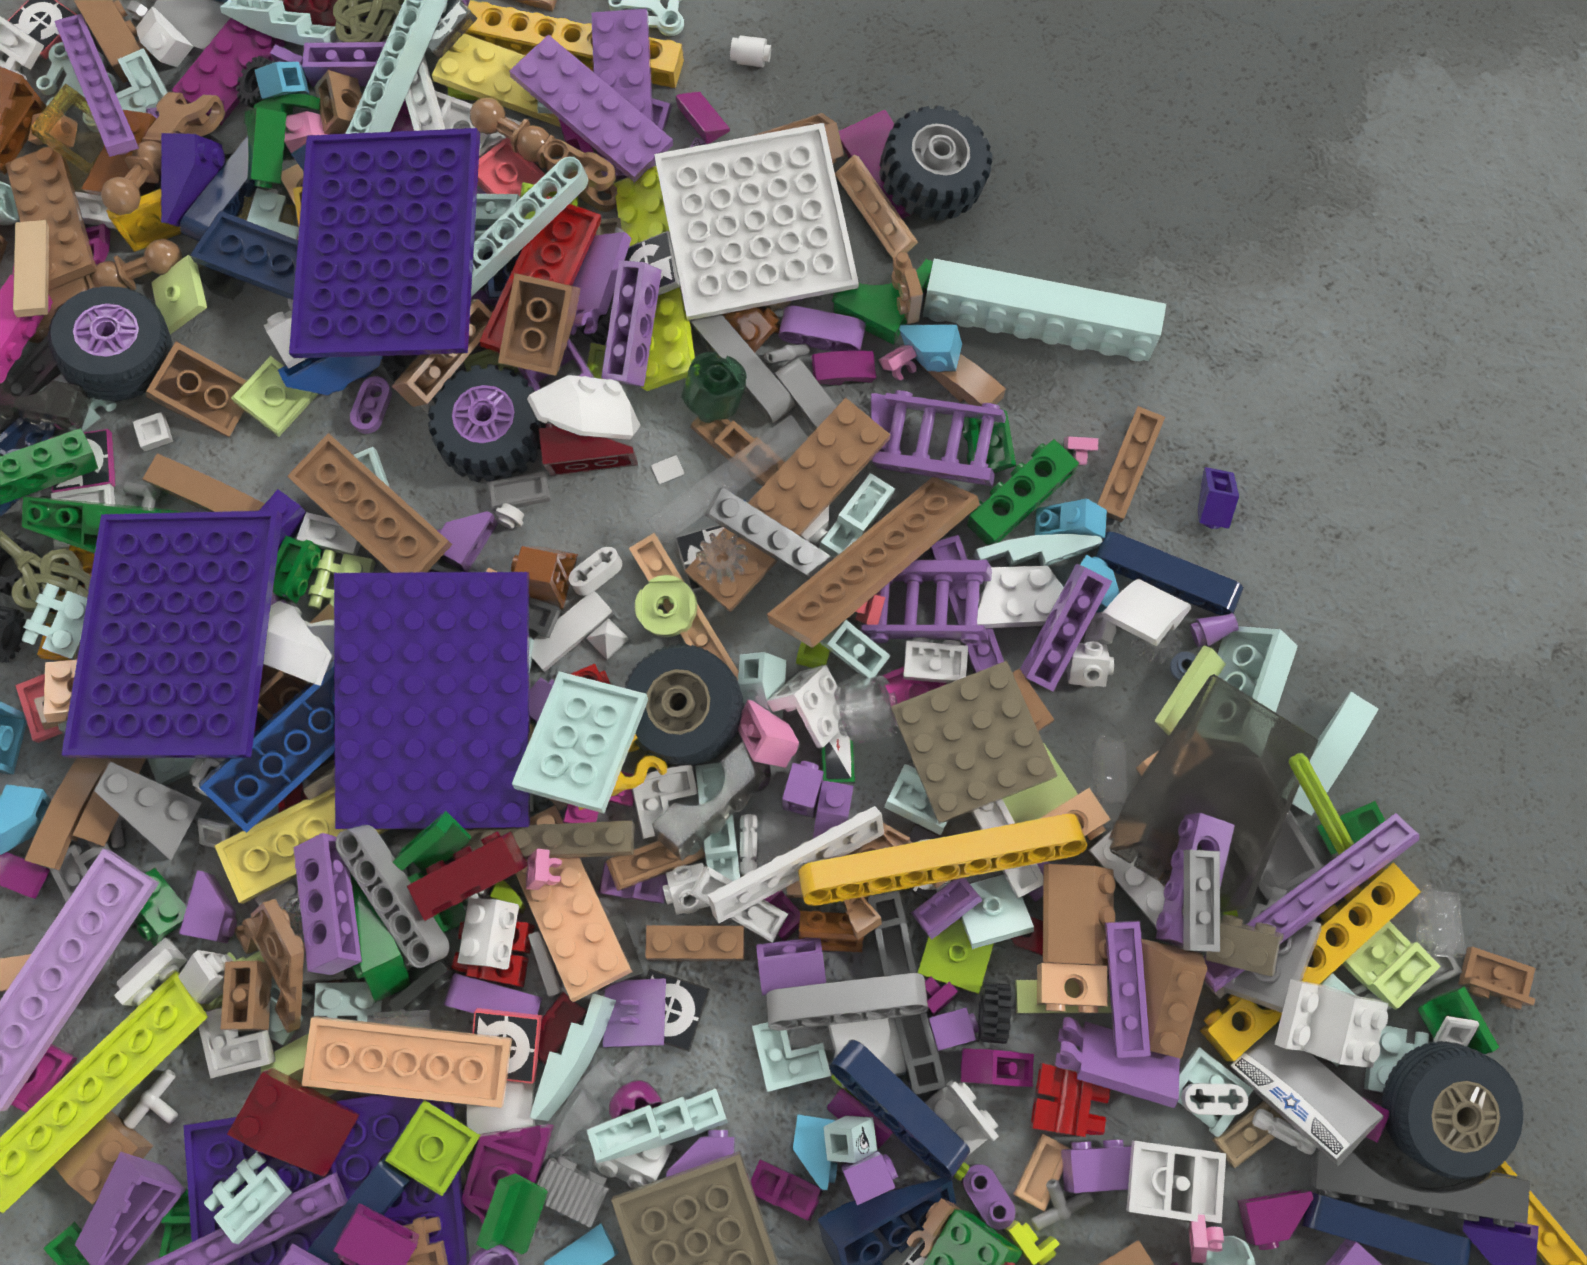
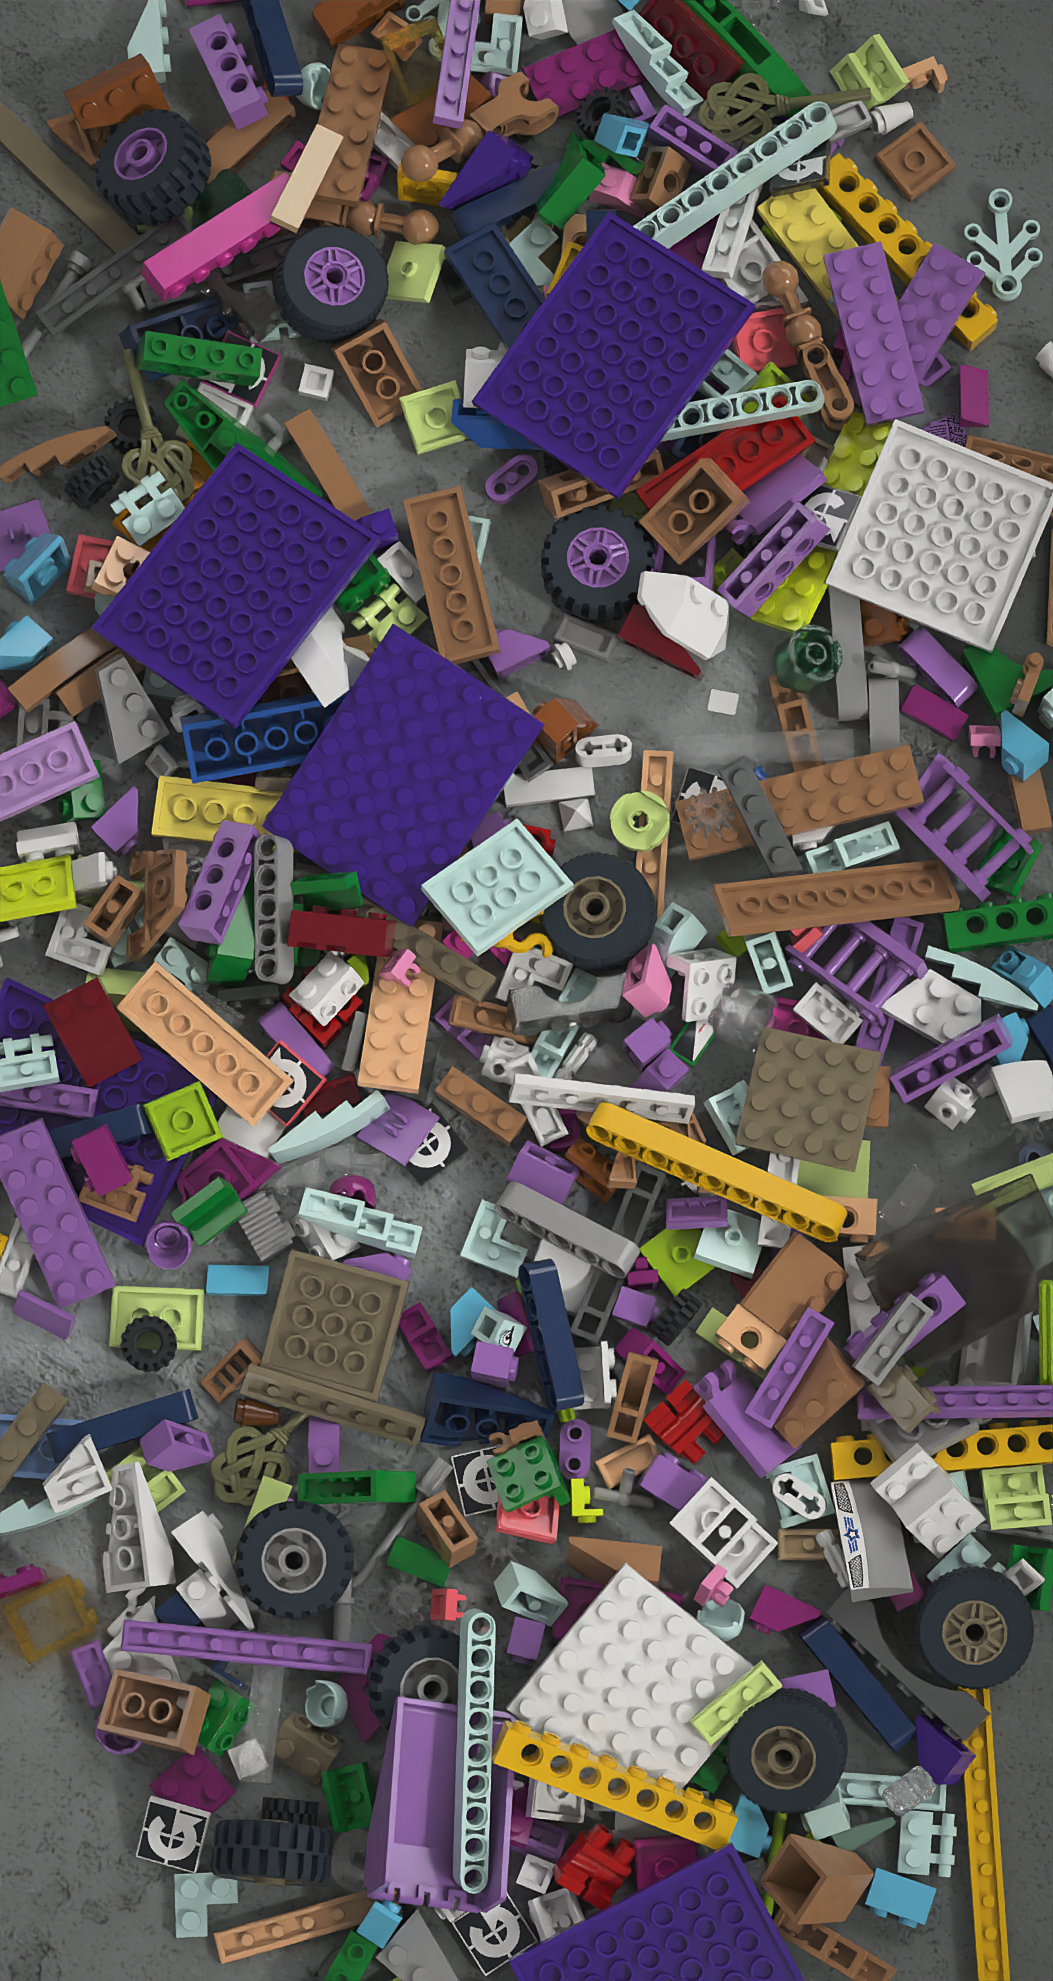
camera: 35 degrees right, 5 degrees up
(1011, 1115) = (632, 1397): none -> medium nougat slope

